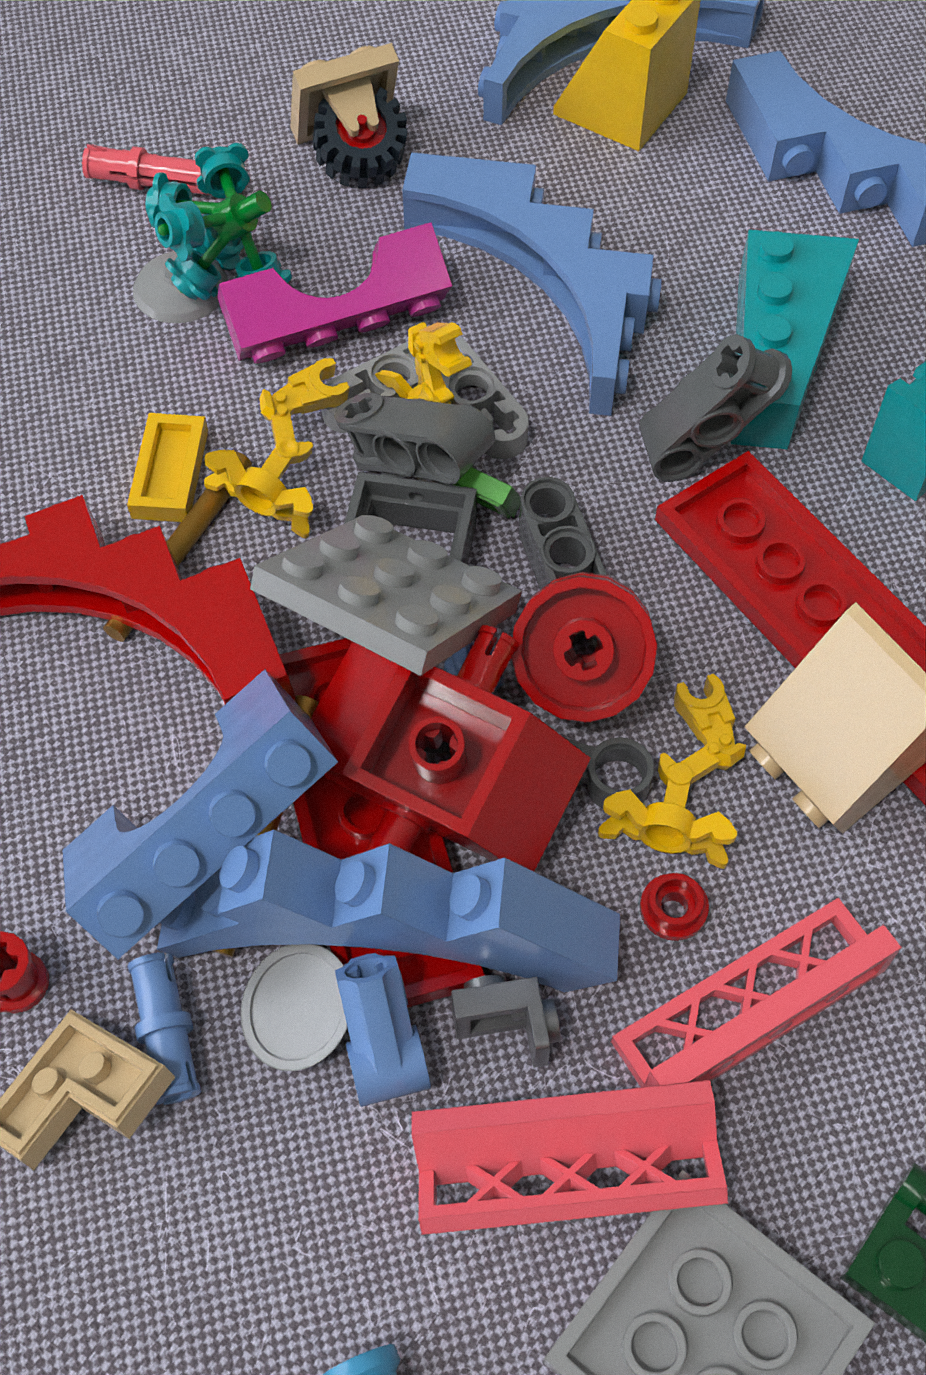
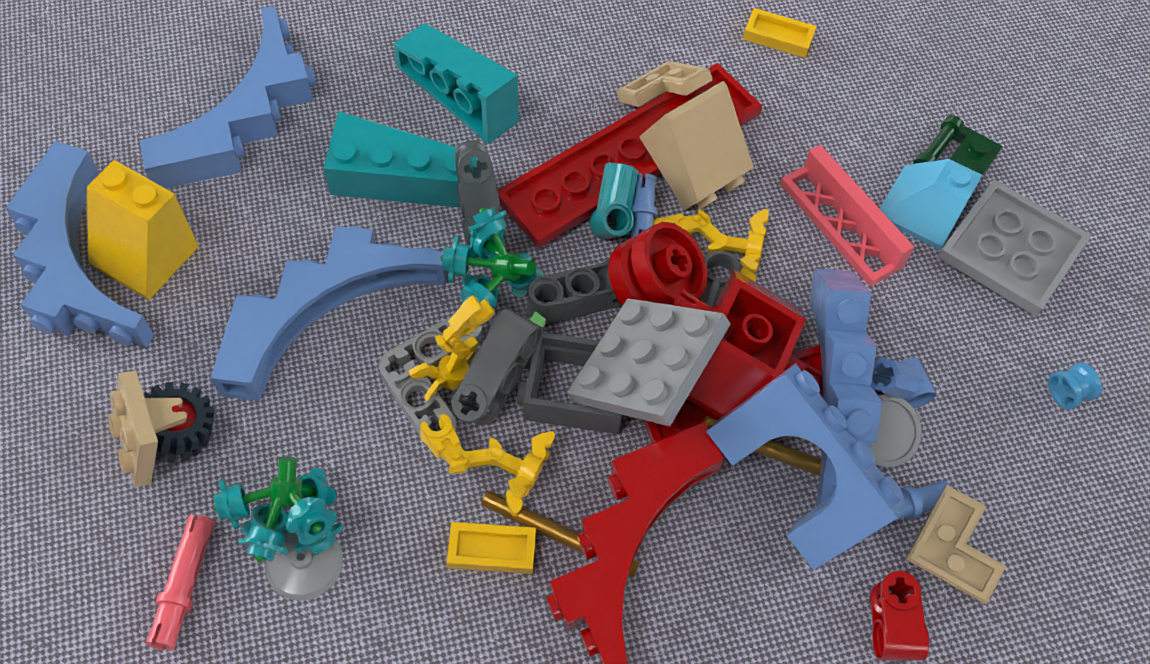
camera: 95 degrees left, 0 degrees up
(270, 314) = (333, 389): dark pink arch -> none
(498, 1006) = (880, 313): flat silver bracket -> none
(566, 1143) = (937, 298): coral fence -> none
(570, 438) = (489, 246): none -> teal plant
(675, 888) = (800, 242): red plate -> none
(726, 653) = (643, 204): none -> medium blue pin
(736, 601) = (615, 198): none -> teal piece
(811, 1176) = (930, 199): none -> medium azure slope

